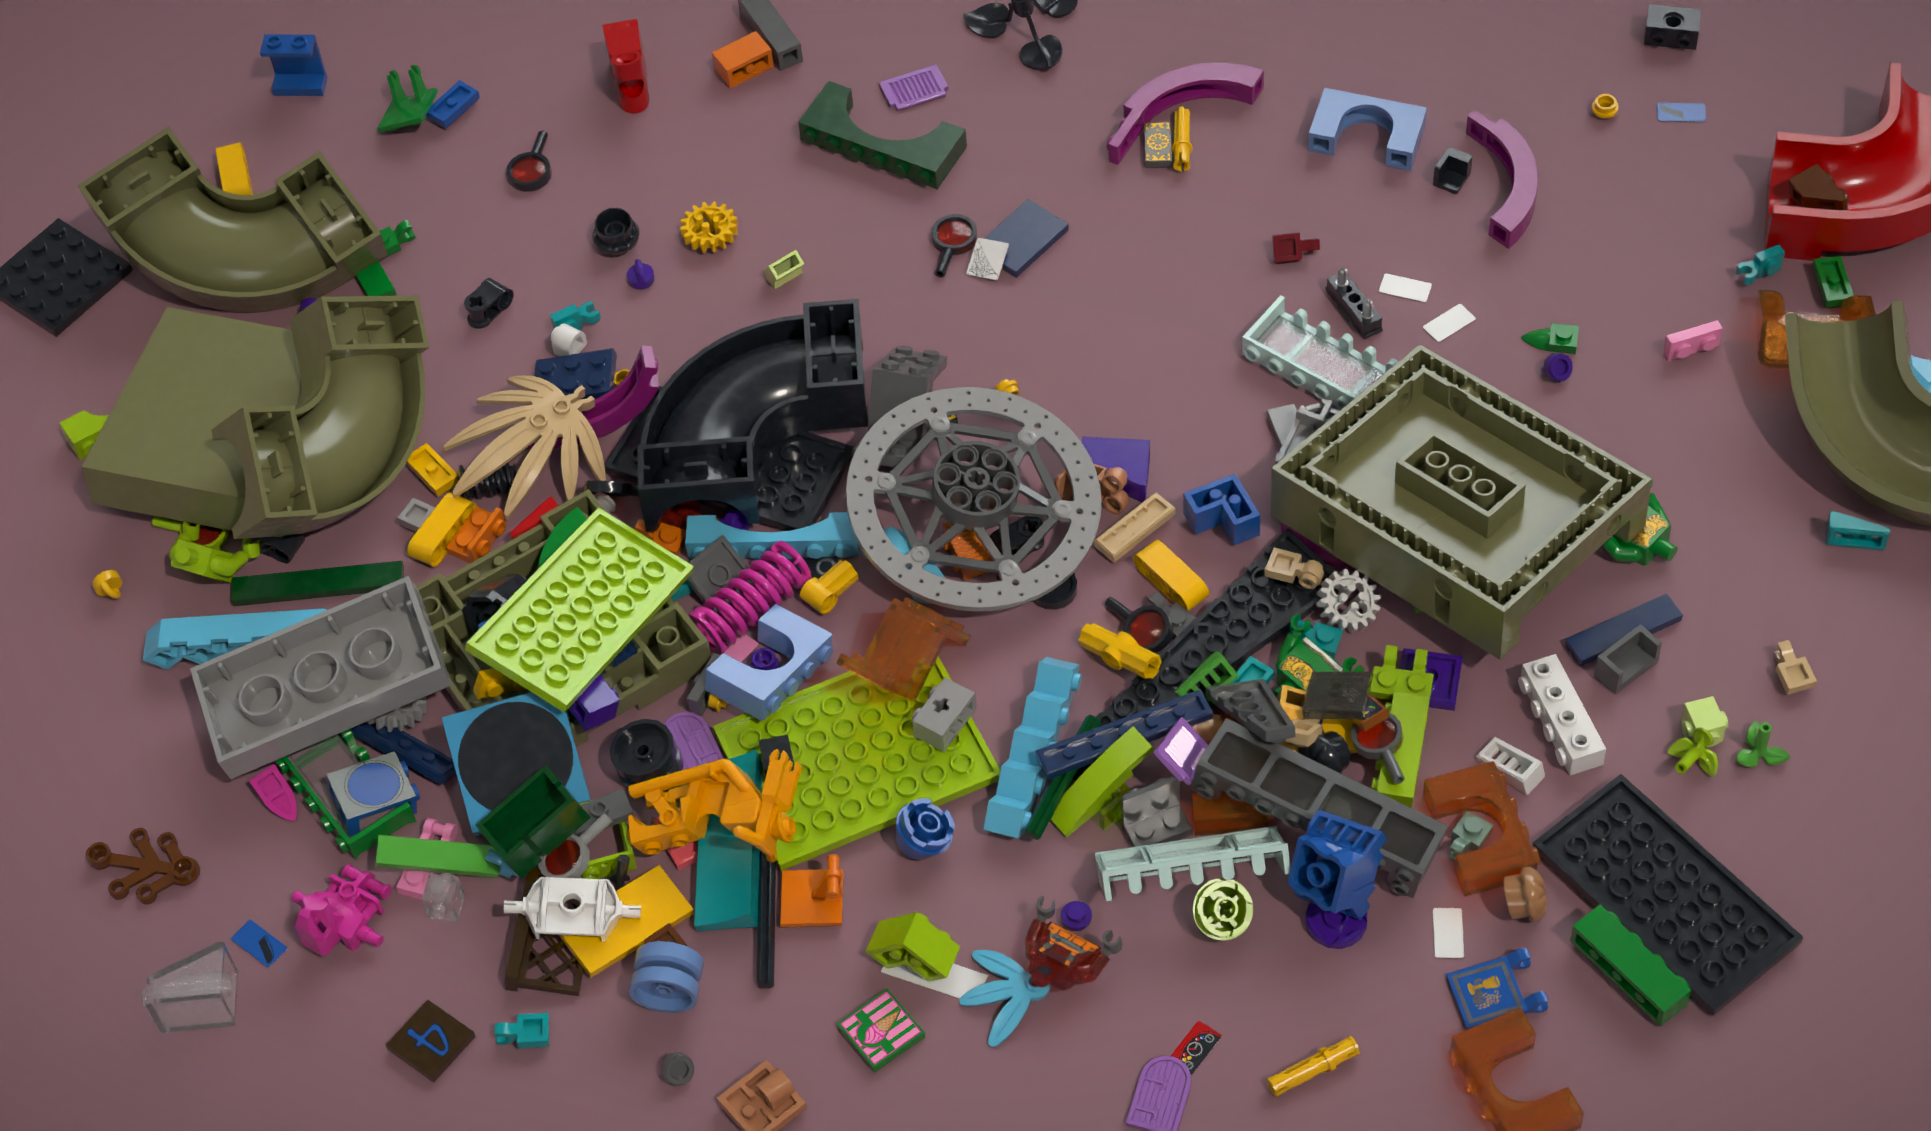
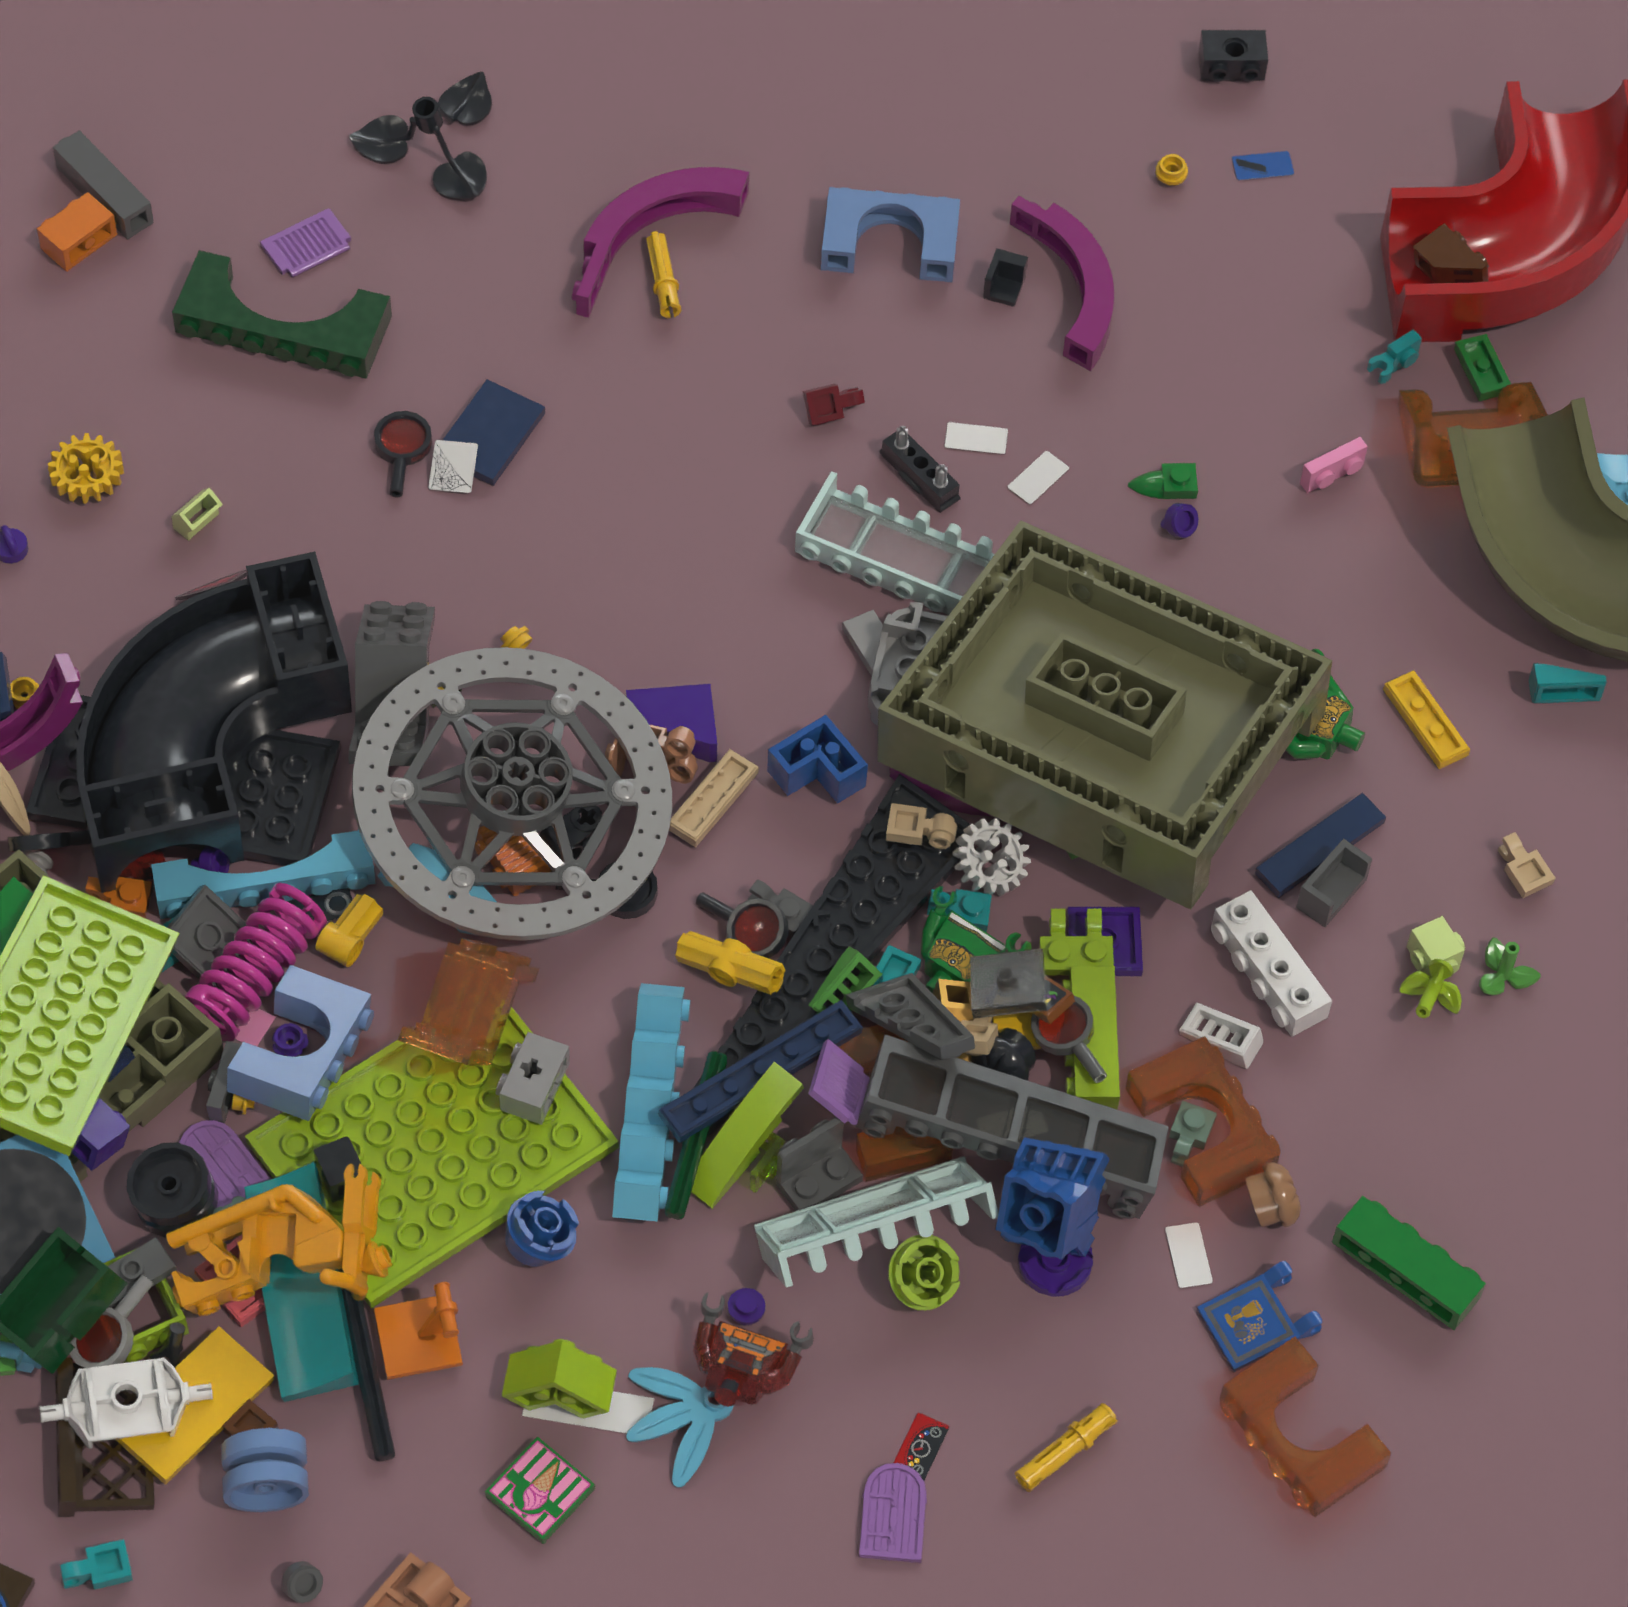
camera: 20 degrees left, 5 degrees up
(1158, 144) = (634, 285): tile -> none
(1171, 575) = (770, 854): yellow beam -> none
(1668, 892) = (1432, 1164): black plate -> none
(1732, 545) = (1426, 719): none -> yellow tile

